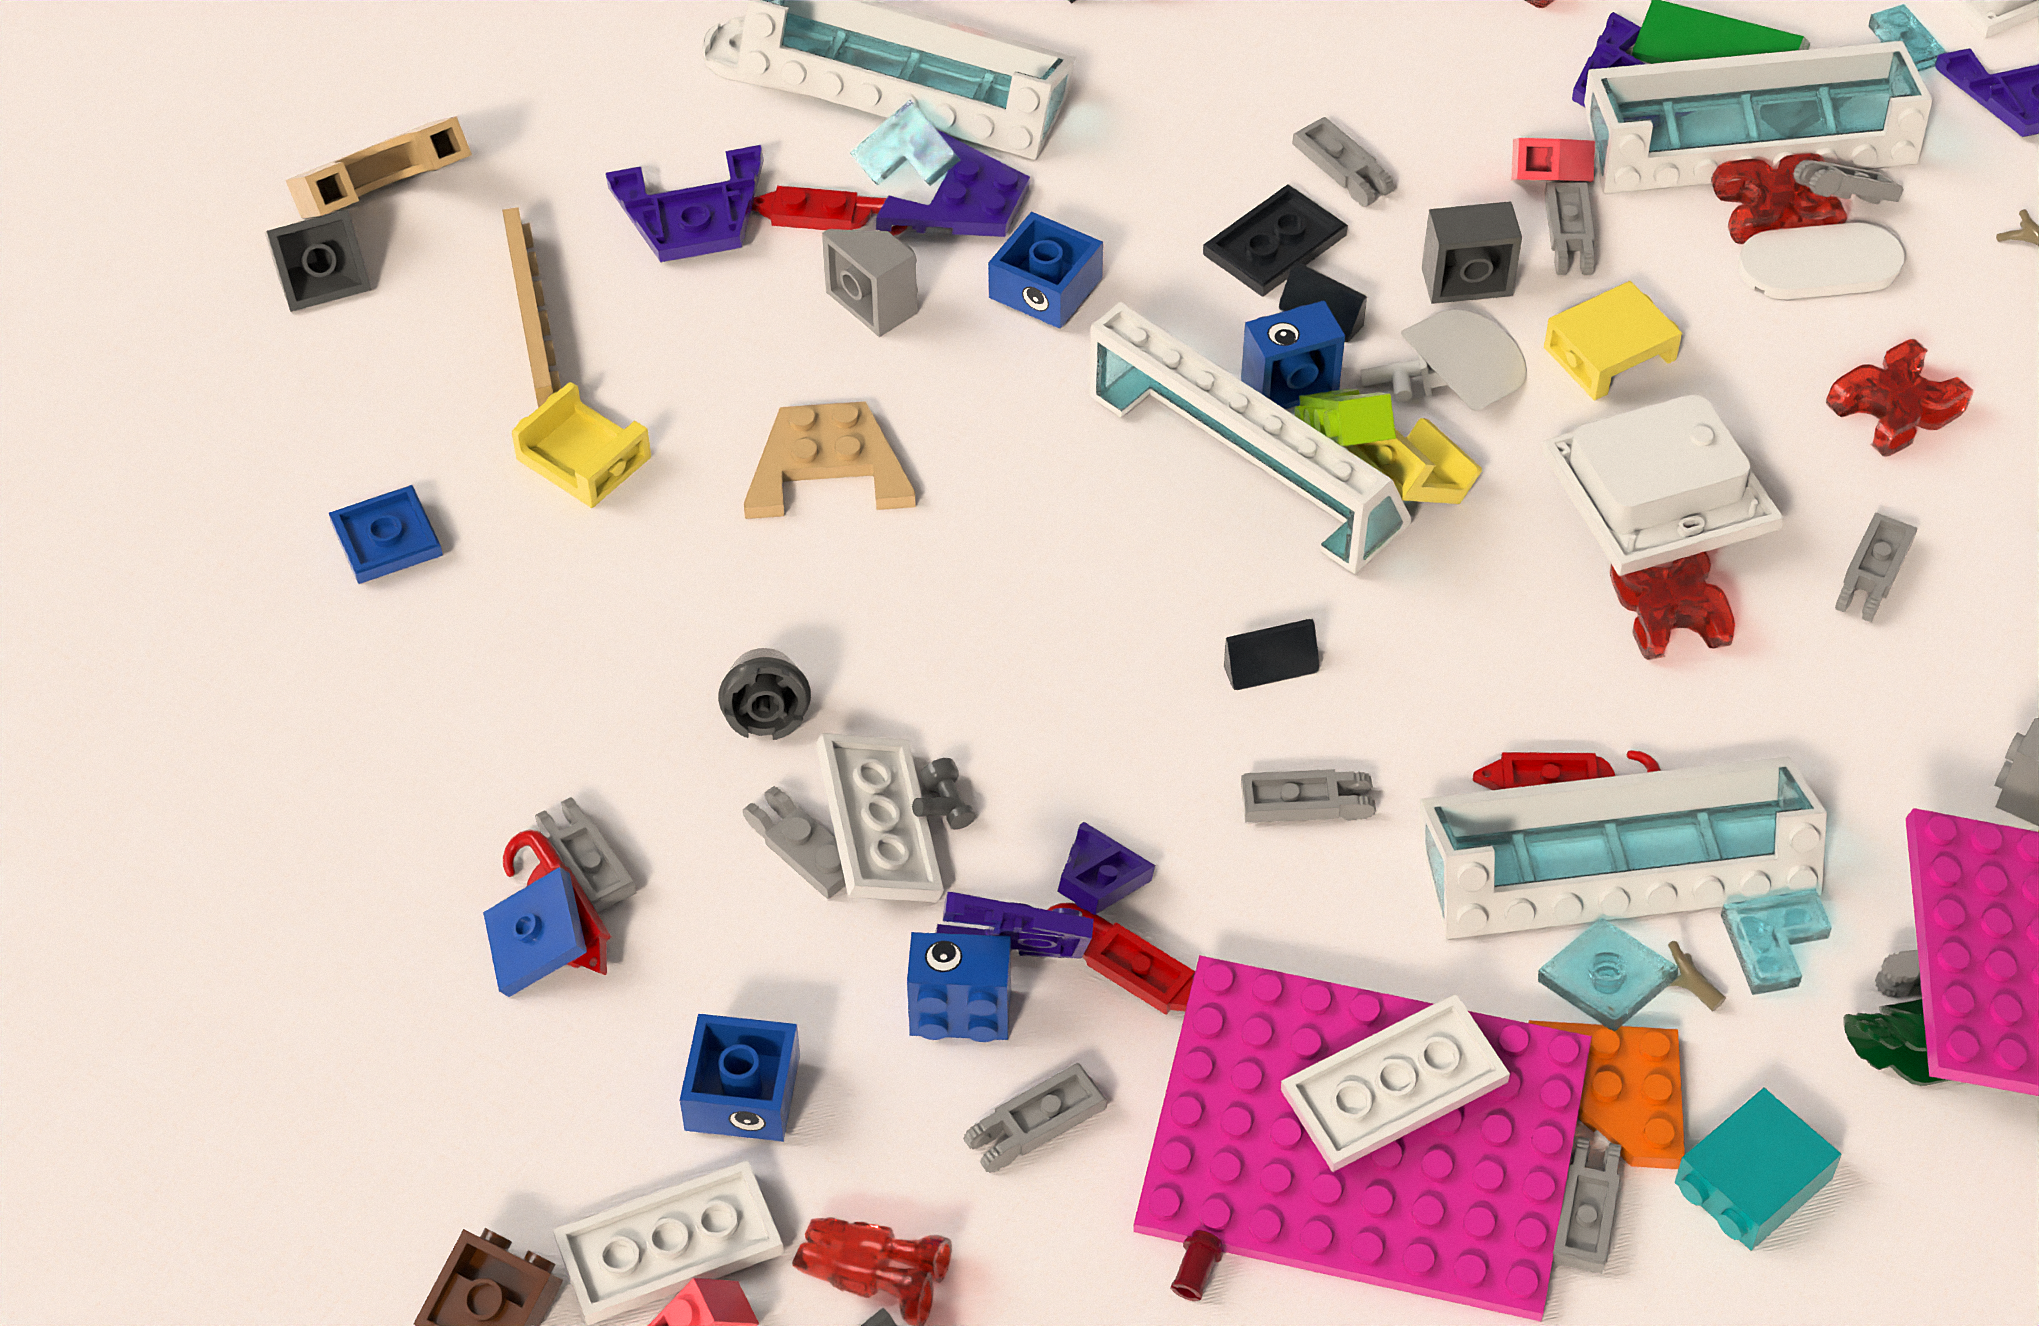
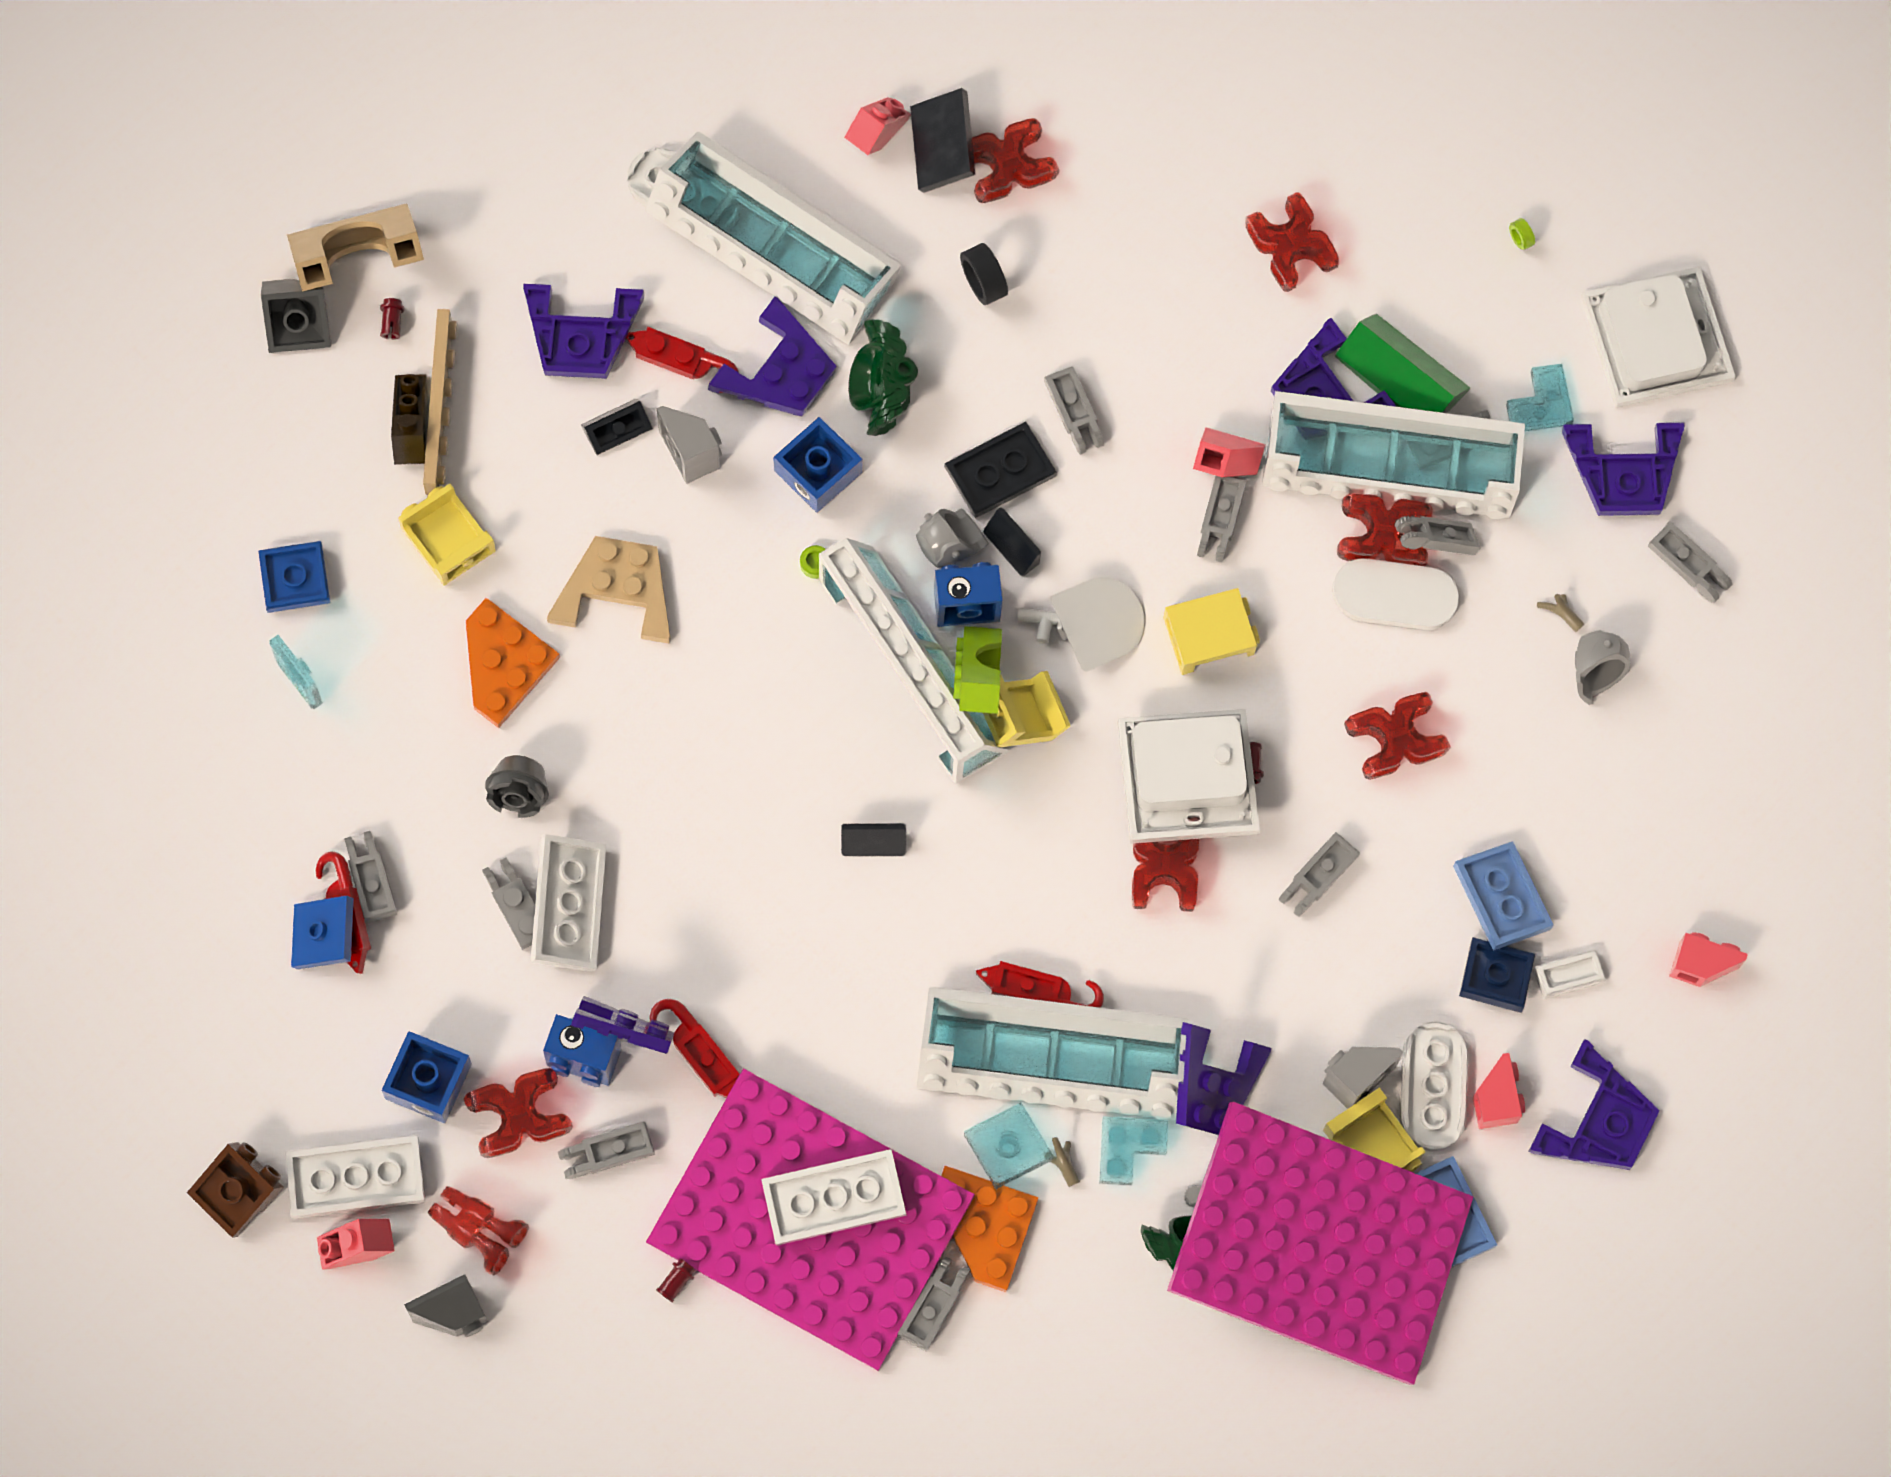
camera: 10 degrees right, 20 degrees up
(416, 627) = (296, 671): none -> clear light blue plate
(443, 233) = (391, 317): none -> dark red pin
(497, 338) = (409, 419): none -> dark brown slope
(699, 569) = (503, 661): none -> orange plate
(770, 294) = (616, 426): none -> black slope
(888, 1098) = (518, 1113): none -> clear red piece
(902, 138) = (755, 314): clear light blue plate -> none
(941, 778) = (621, 904): dark grey piece -> none
(1074, 379) = (810, 561): none -> lime tile
(1092, 164) = (881, 377): none -> dark green piece
(1101, 871) = (702, 982): dark purple wing -> none
(1193, 38) = (984, 273): none -> black tyre
(1228, 307) = (949, 537): none -> light grey helmet
(1306, 795) = (857, 957): light grey hinge -> none
(1471, 252) = (1131, 531): dark grey brick -> none
(1757, 1169) = (1047, 1310): teal brick -> none
(1862, 831) = (1209, 1090): none -> dark purple wing

